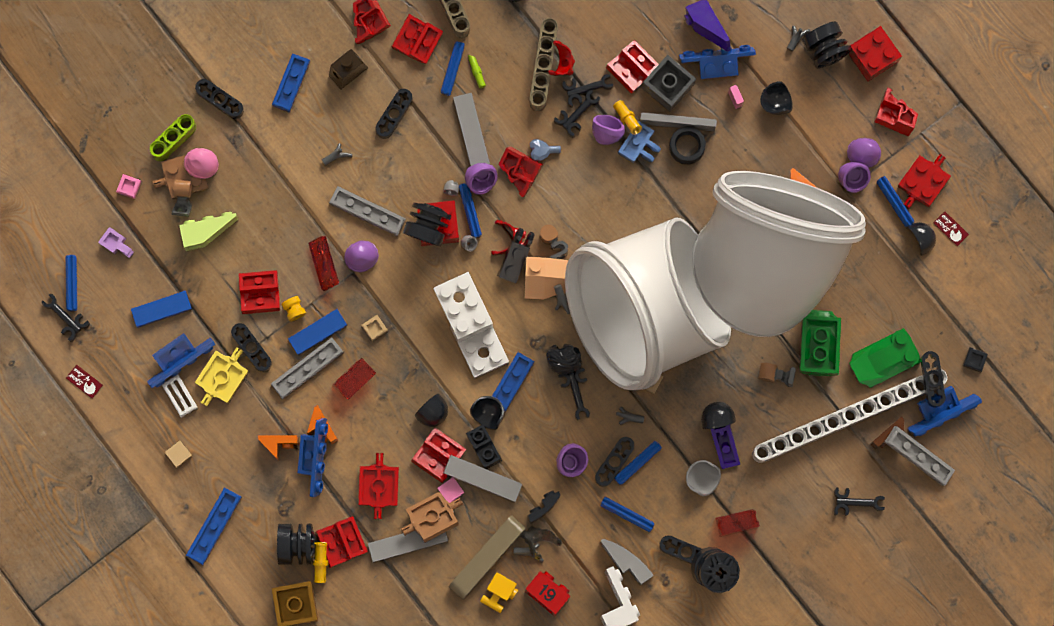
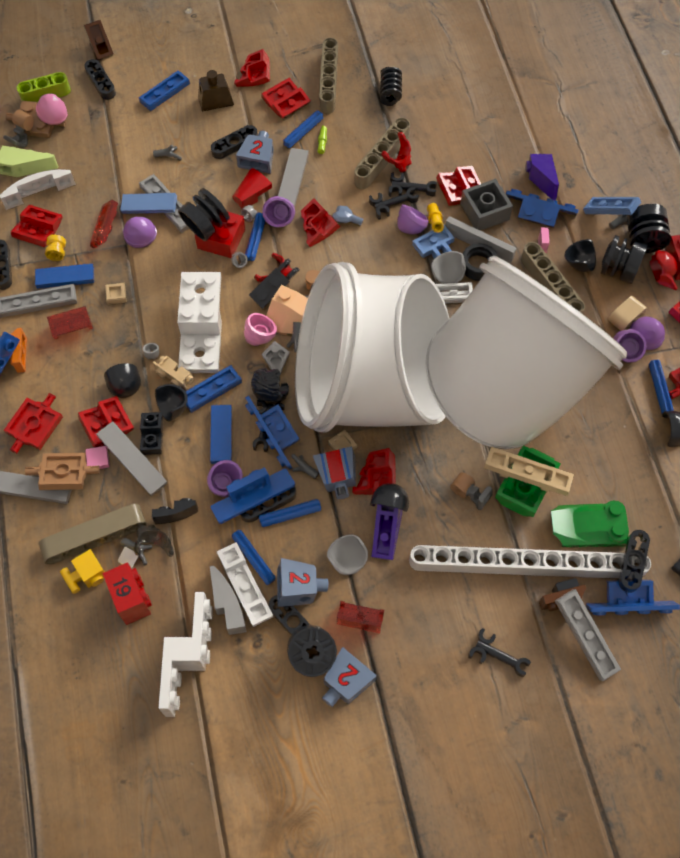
camera: 30 degrees right, 15 degrees down
(193, 55) = (98, 39): none -> reddish brown slope
(252, 233) = (35, 183): none -> white slope
(353, 222) = (148, 203): none -> medium blue tile
(425, 117) = (256, 153): none -> sand blue torso
(438, 159) = (250, 188): none -> red slope
(444, 367) = (151, 347): none -> light grey hinge
(465, 382) = (167, 368): none -> tan hinge
(525, 563) = (127, 556): none -> white sticker
(527, 307) = (259, 329): none -> bright pink hat
(543, 419) = (221, 433): none -> blue tile
(553, 326) = (276, 356): none -> light grey piece
(592, 395) = (277, 428): none -> blue bracket
(602, 463) = (251, 492): none -> blue bracket
(633, 541) = (244, 584): none -> white slope
(660, 409) = (337, 470): none -> torso
(663, 195) = (454, 295): none -> white tile
(664, 165) = (449, 267): none -> light grey helmet
(676, 520) = (298, 583): none -> sand blue torso
(693, 394) = (379, 470): none -> red slope
(752, 578) = (347, 679): none -> sand blue torso
(757, 129) = (546, 272): none -> dark tan beam
(784, 34) = (612, 205): none -> medium blue tile
(816, 89) = (623, 259): none -> black wheel
(820, 342) = (529, 471): none -> tan hinge
(840, 141) = (627, 313): none -> tan beam
(855, 79) = (664, 268): none -> red piece
(887, 423) = (565, 585): none -> black tile

